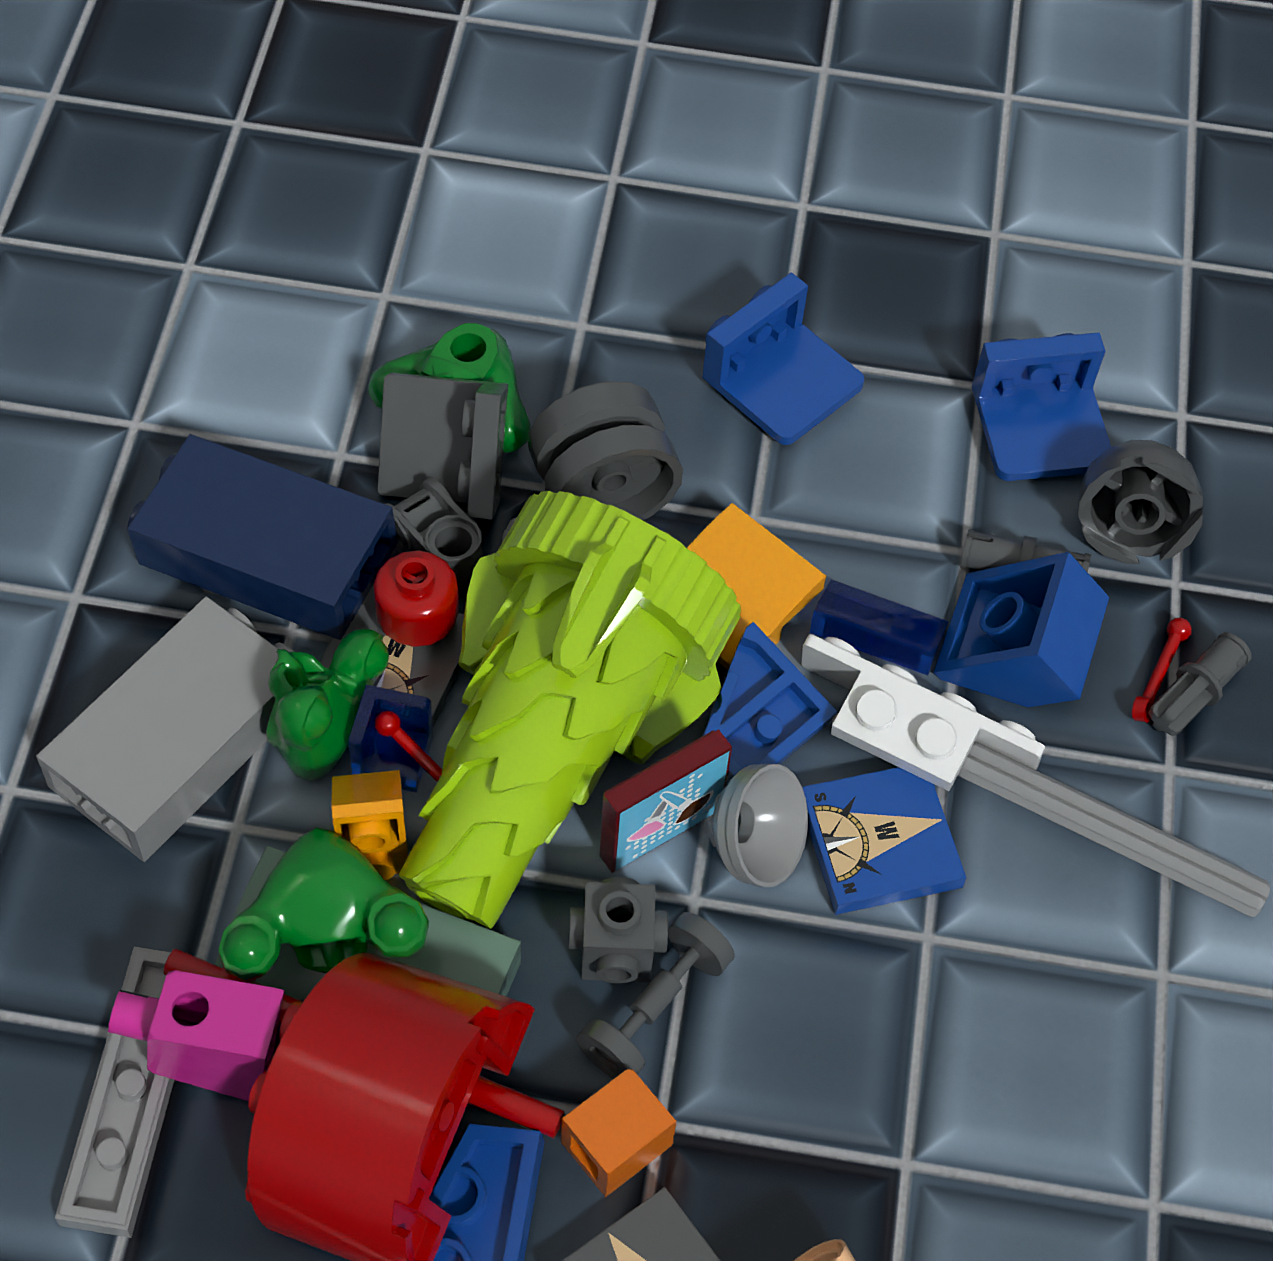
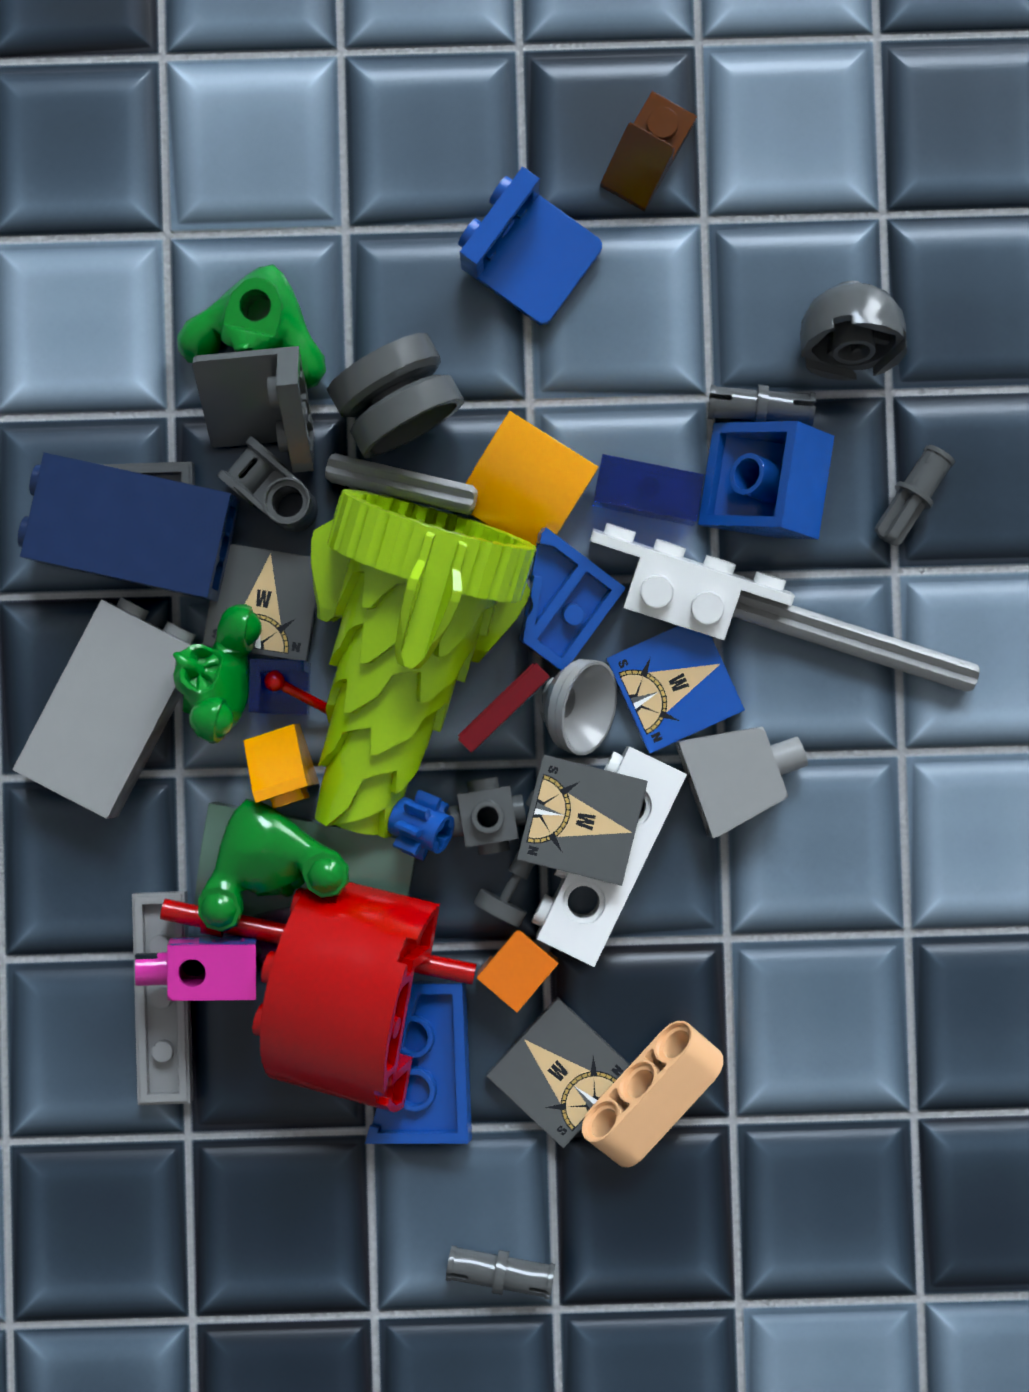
camera: 10 degrees left, 30 degrees up
(416, 598) = (276, 585): red head -> none
(531, 912) = (421, 825): none -> blue gear
(716, 1105) = (586, 934): none -> white brick
(740, 942) = (582, 820): none -> dark grey tile
(926, 309) = (647, 150): none -> reddish brown slope
(945, 947) = (737, 775): none -> light grey torso
(1041, 405) = (761, 248): blue bracket -> none
(1177, 630) = (893, 442): red hinge -> none

